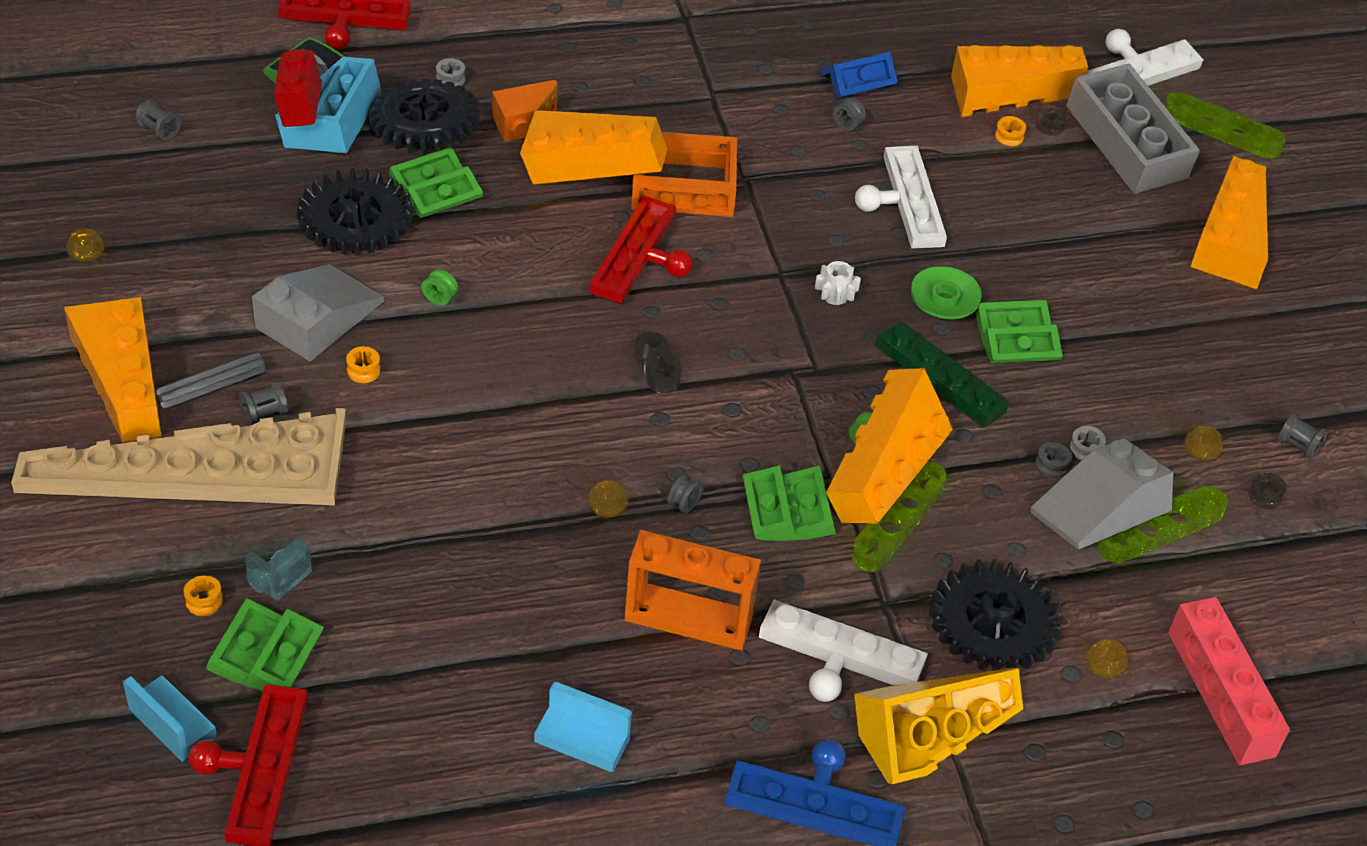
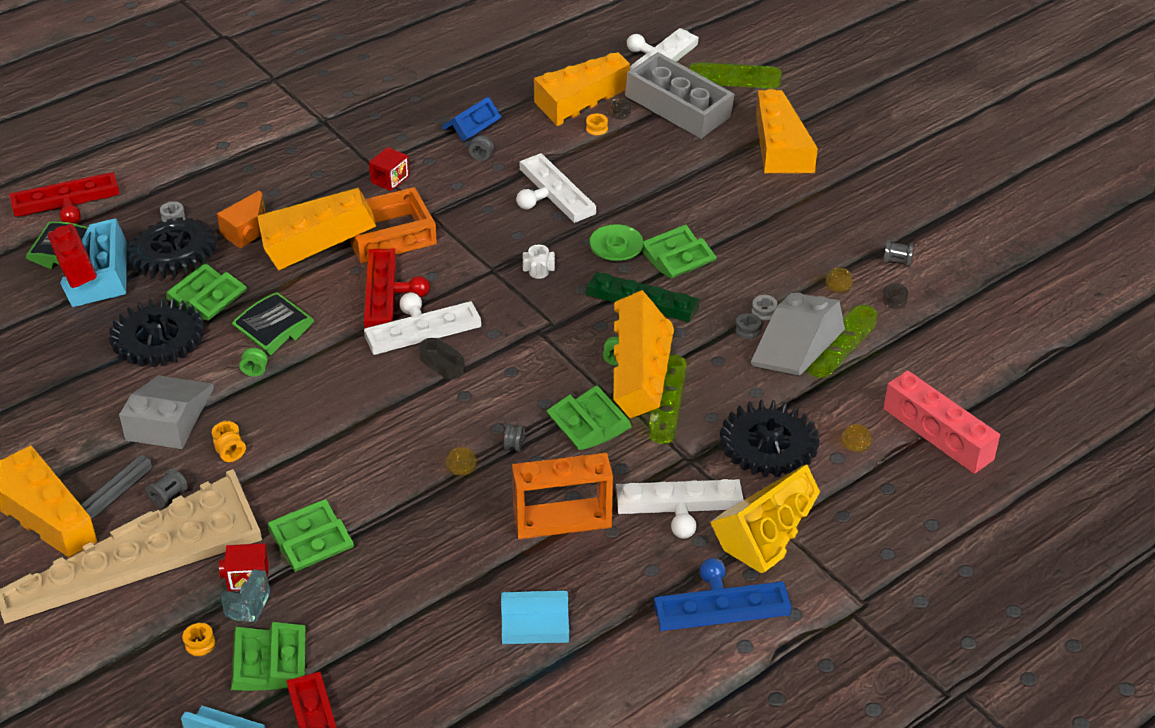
camera: 20 degrees left, 5 degrees down
(295, 521) = (240, 562): none -> red brick
(357, 371) = (235, 451): none -> light orange bush
(389, 521) = (310, 535): none -> bright green slope
(488, 245) = (272, 322): none -> slope
(655, 312) = (421, 326): none -> white plate
(724, 103) = (389, 169): none -> red brick

